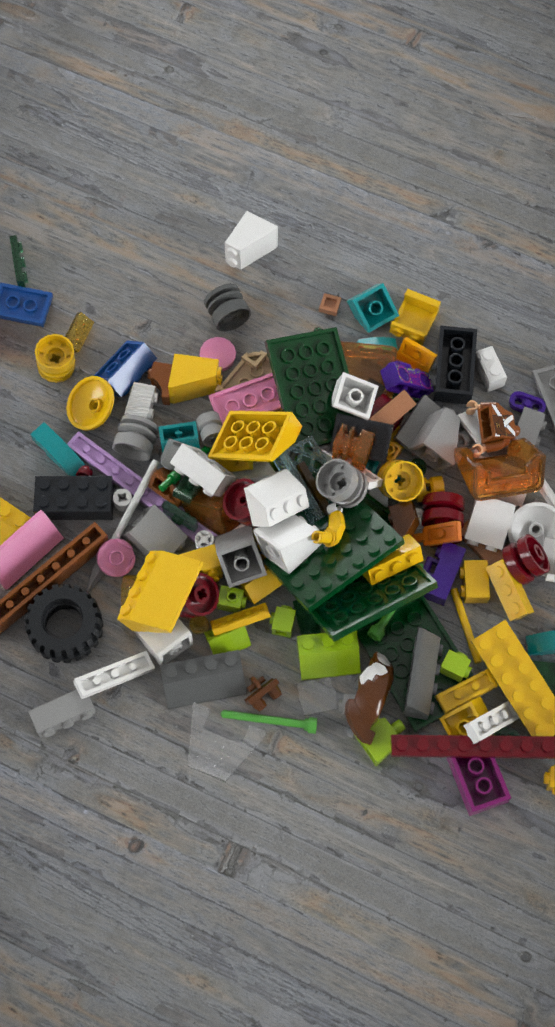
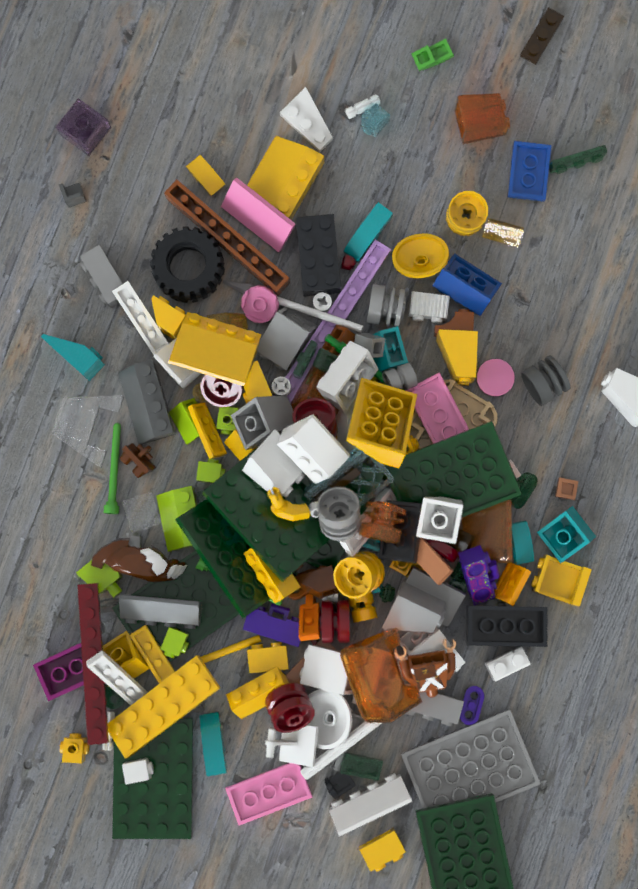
camera: 90 degrees right, 15 degrees up
(118, 645) = (167, 318): none -> yellow slope
(147, 742) = (84, 360): none -> teal slope

